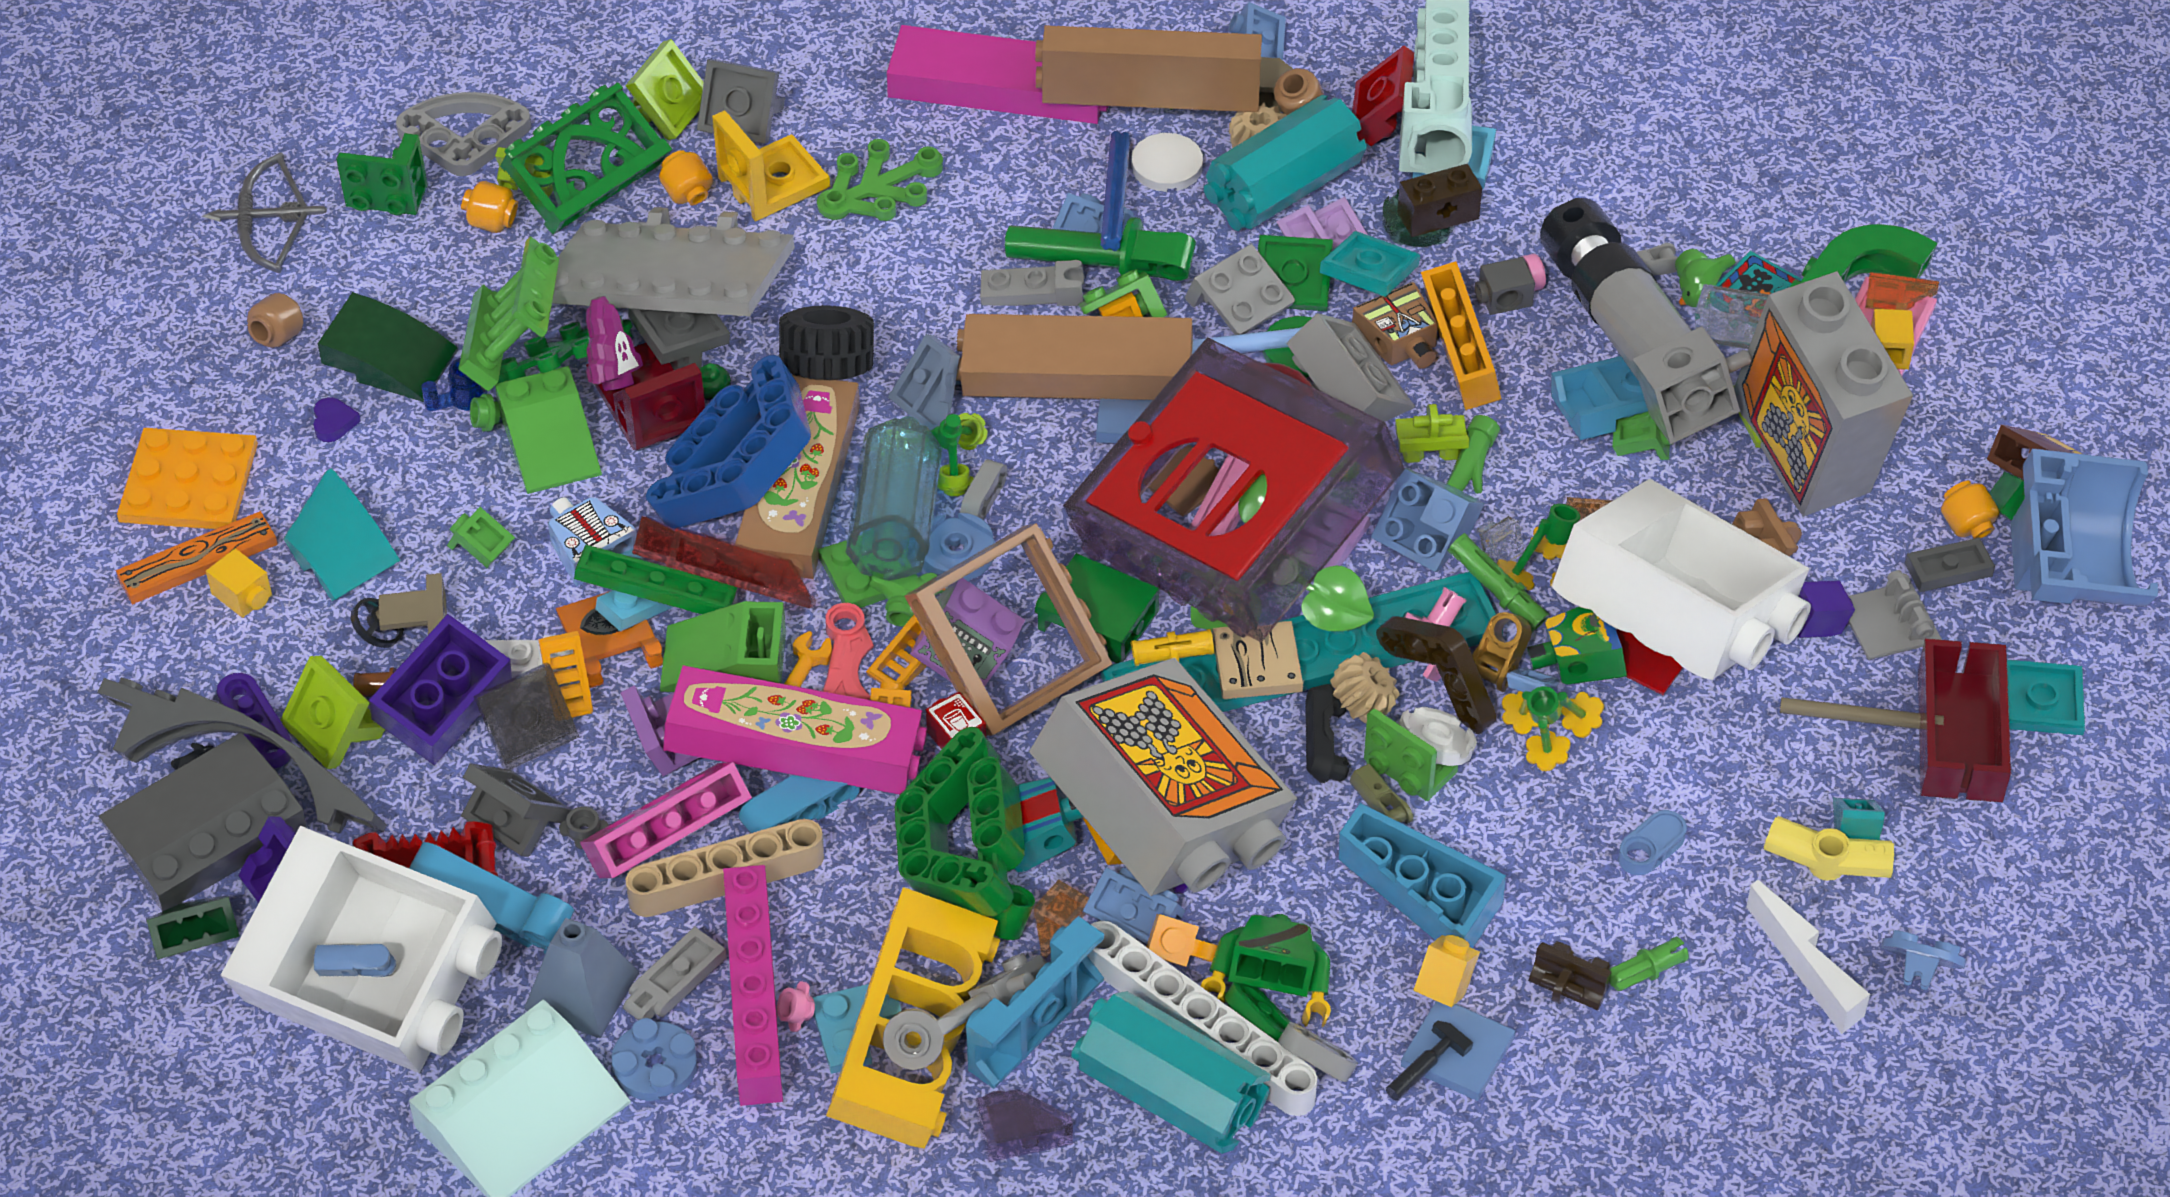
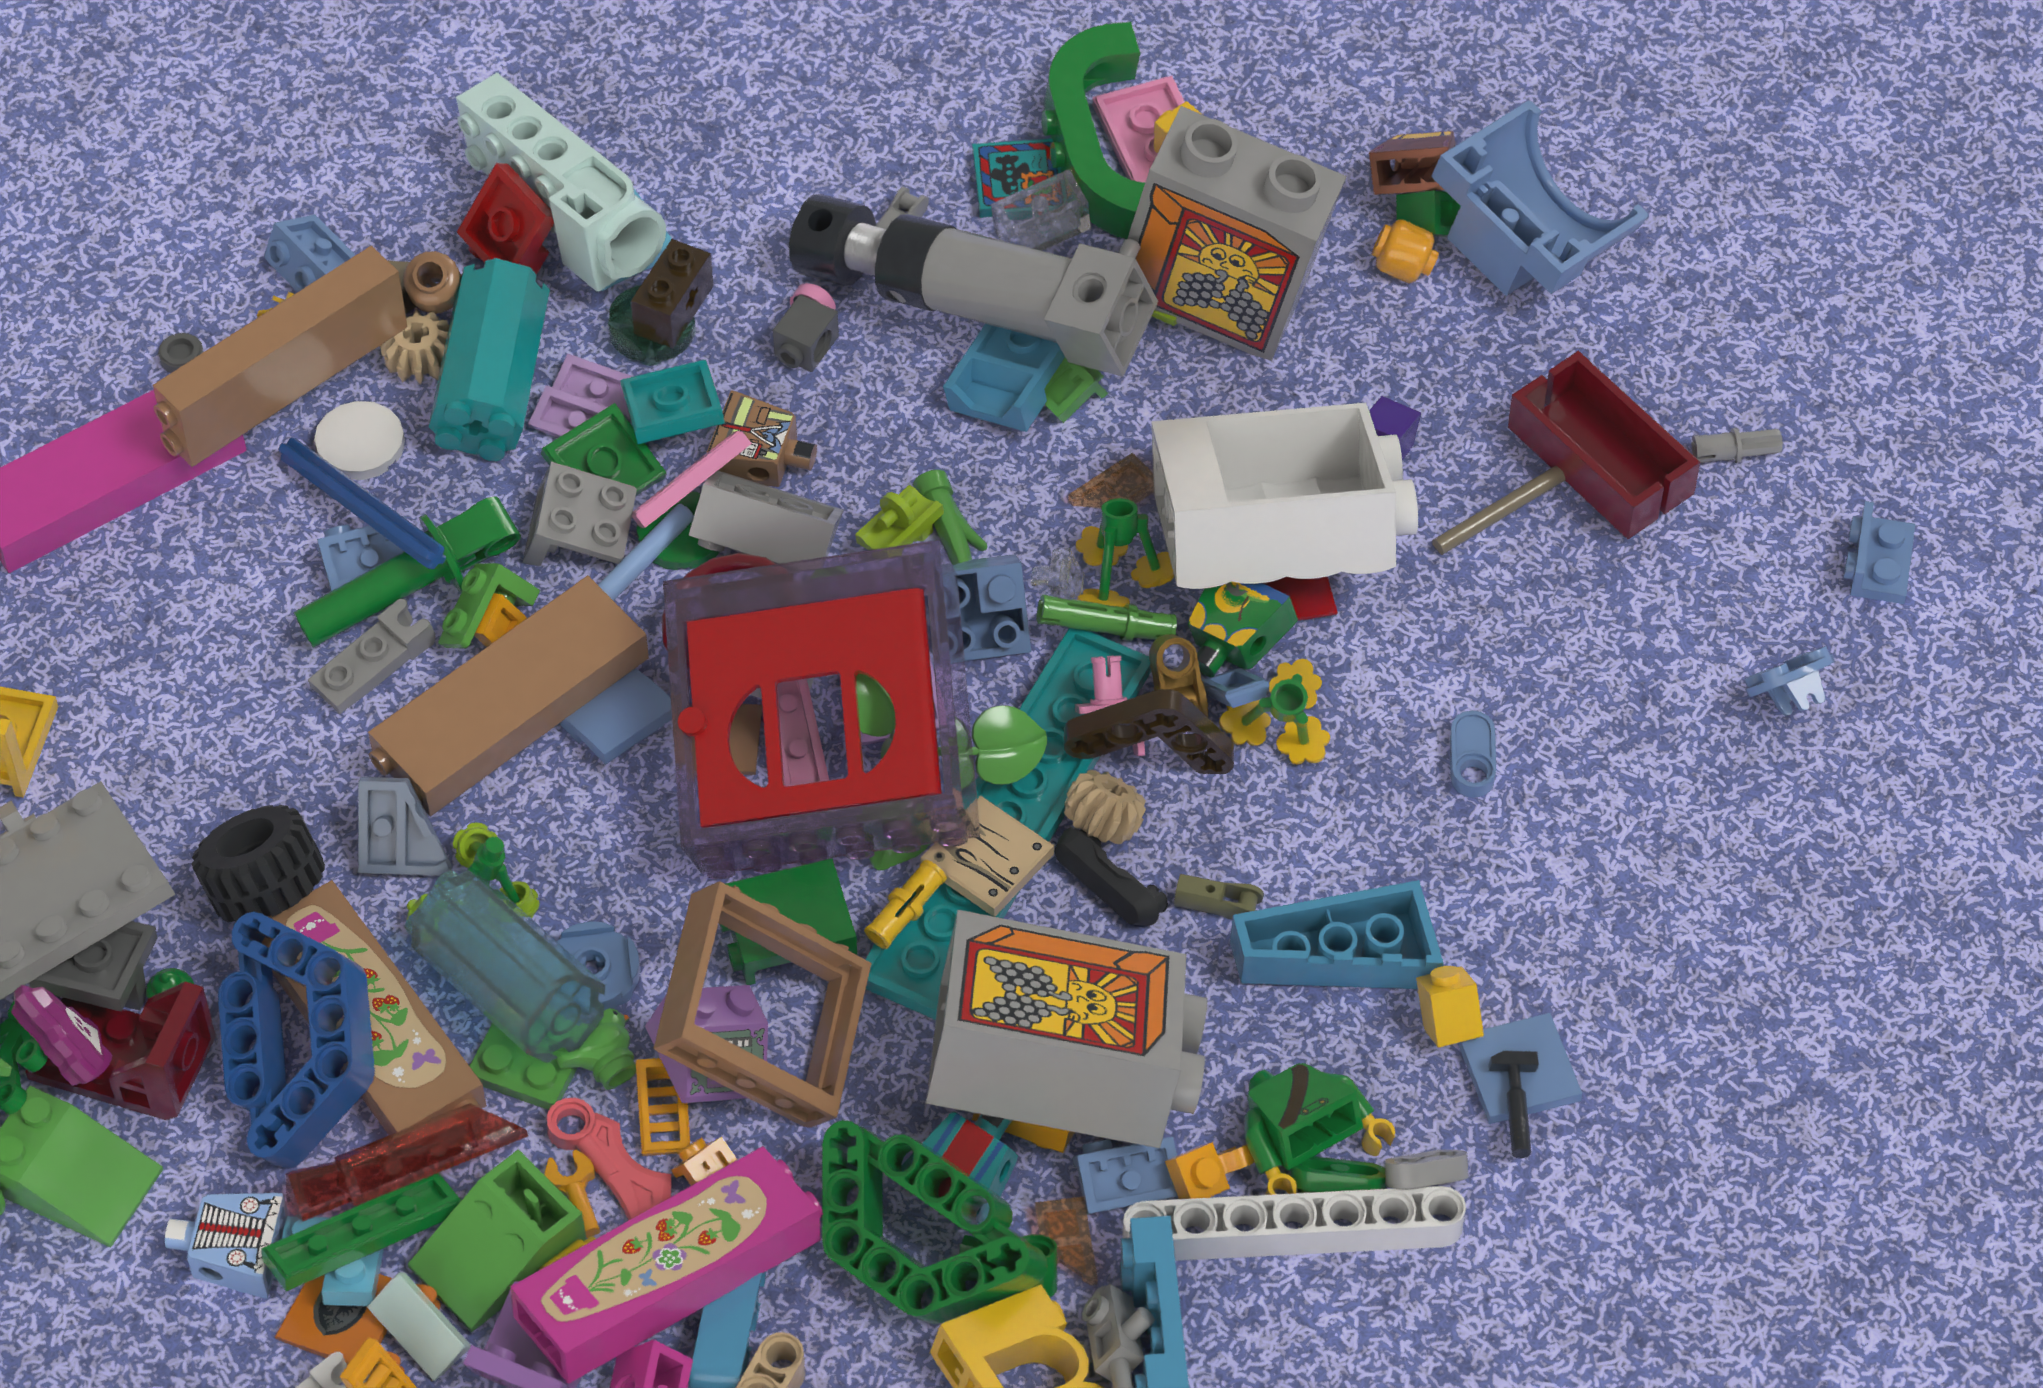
camera: 45 degrees left, 5 degrees up
(480, 536) = (122, 1327): bright green bracket -> none
(631, 657) = (418, 1326): none -> light aqua slope
(841, 201) = (107, 670): bright green plant -> none
(950, 716) = (790, 1135): red brick -> none
(984, 489) = (557, 891): light grey beam -> none
(1171, 1070) = (1336, 1290): teal brick -> none
(1342, 309) = (690, 478): none -> bright pink tile
(1404, 757) = (1205, 844): bright green bracket -> none
(1442, 732) = (1207, 804): white tile -> none
(1461, 335) = (827, 410): light orange brick -> none
(1569, 975) = (1541, 927): dark brown hips -> none
(1647, 964) = (1586, 864): bright green axle -> none
(1696, 270) = (957, 199): bright green animal -> none
(1767, 527) = (1267, 393): medium nougat hips -> none
(1796, 940) = (1676, 746): white slope -> none
(1830, 851) = (1602, 655): light yellow piece -> none
(1858, 818) = (1611, 601): teal slope -> none
(1891, 618) = (1447, 397): light grey hinge -> none
(1897, 292) = (1137, 94): clear orange tile -> none
(1949, 565) = (1437, 313): dark grey plate -> none
(2045, 697) = (1637, 368): teal tile -> none
(2068, 793) = (1736, 445): none -> light grey axle
(2090, 935) = (1881, 557): none -> medium blue bracket

